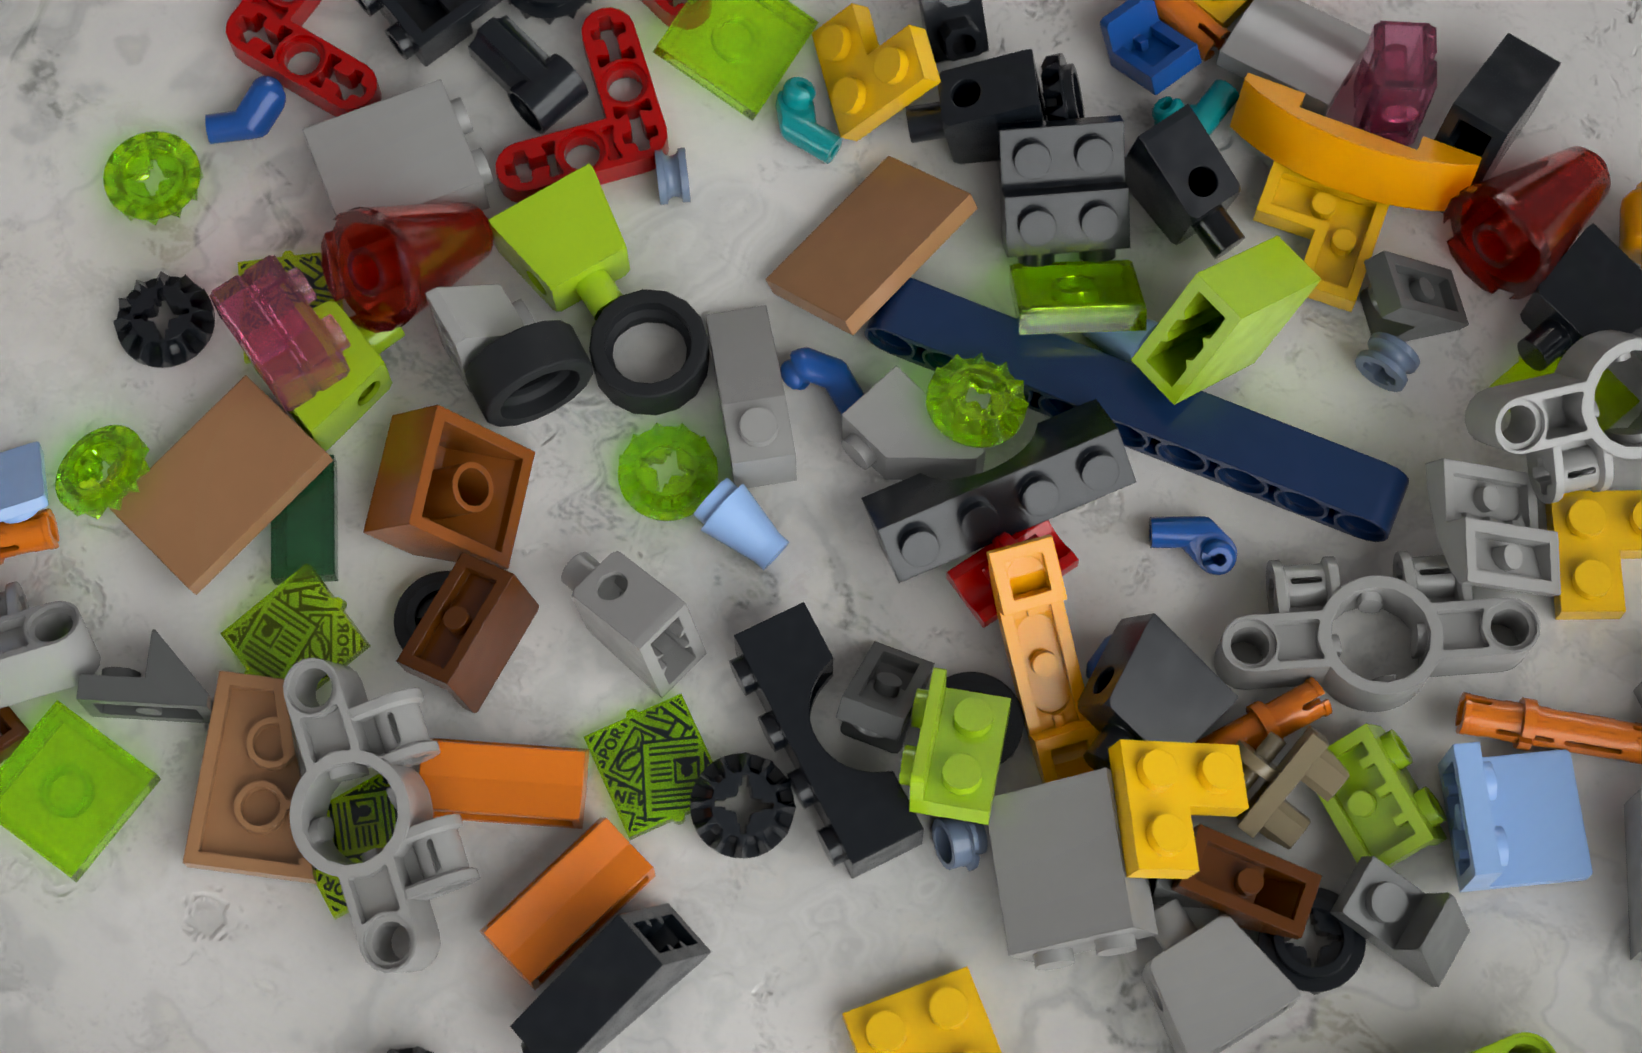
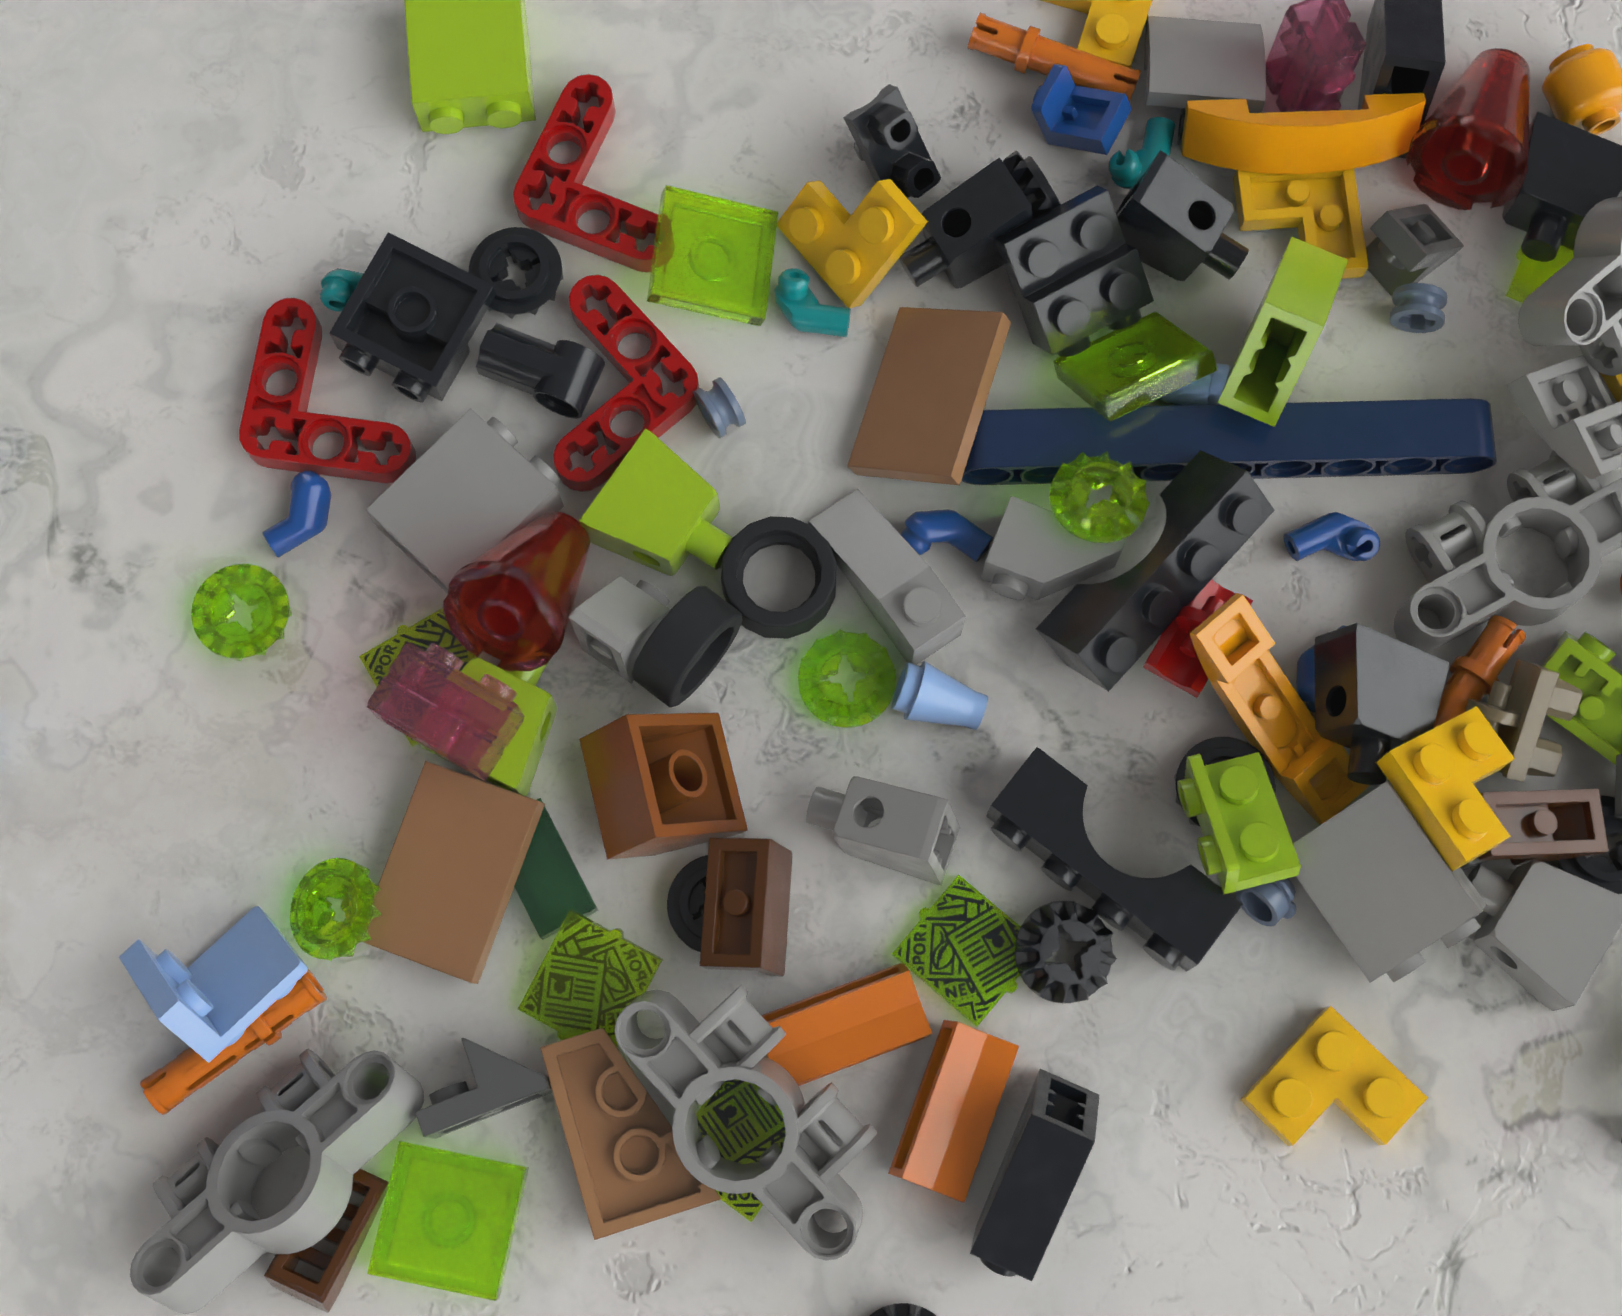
camera: 25 degrees left, 5 degrees up
(185, 334) = (346, 745): black gear -> none
(882, 697) = (1142, 797): dark grey slope -> none

